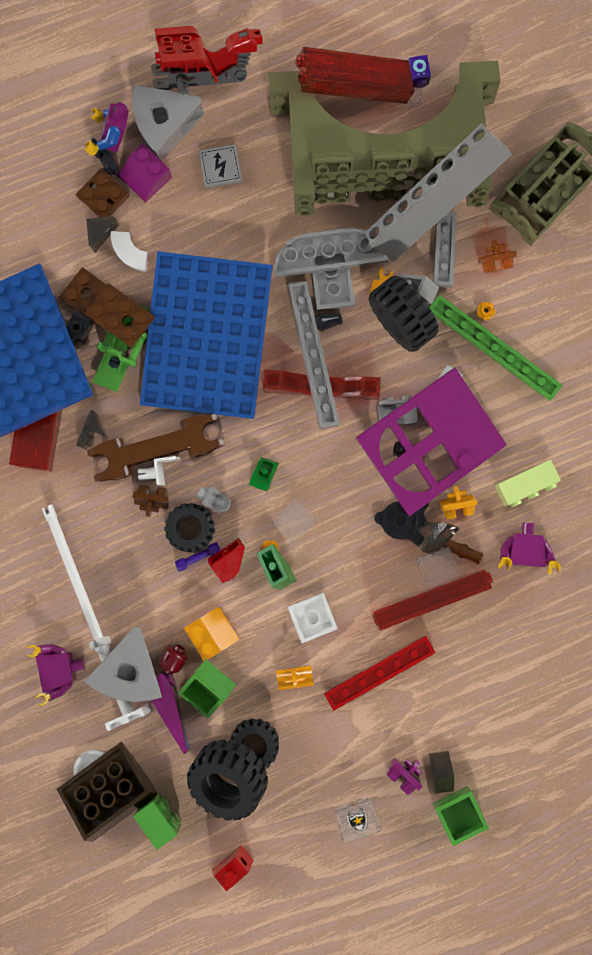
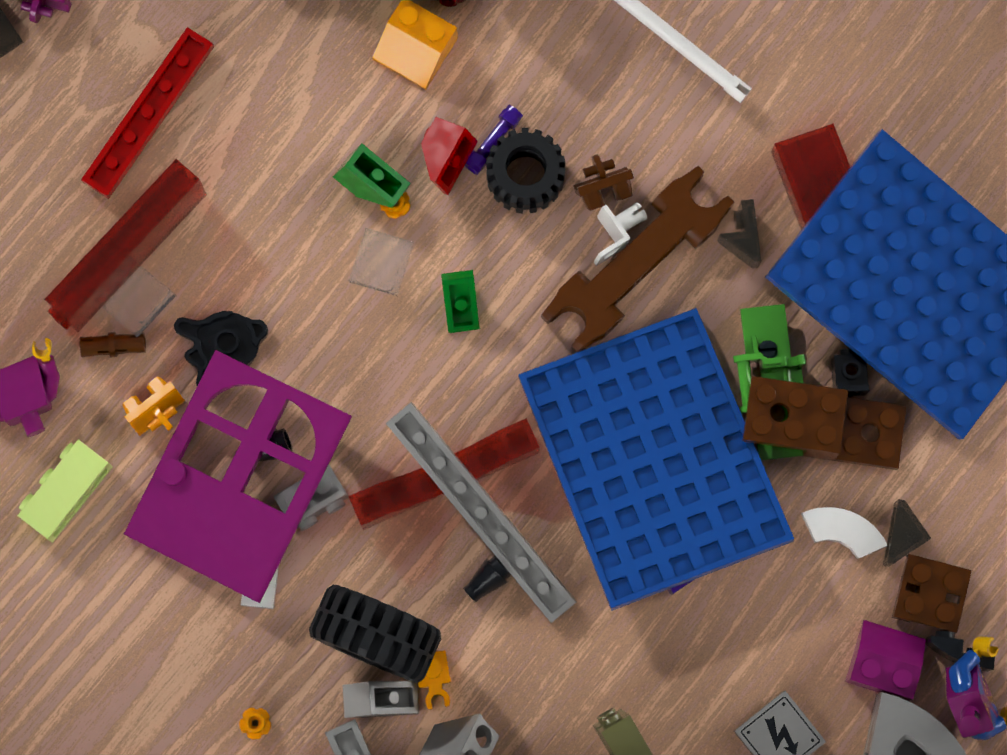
camera: 150 degrees right, 5 degrees down
(214, 499) = (511, 226): light grey hips -> none
(294, 677) = (265, 43): light orange hips -> none
(312, 618) = (283, 140): white tile -> none
(329, 260) = (532, 672): light grey plate -> none
(440, 534) = (158, 342): clear smoke slope -> none
(495, 348) = (214, 670): bright green plate -> none

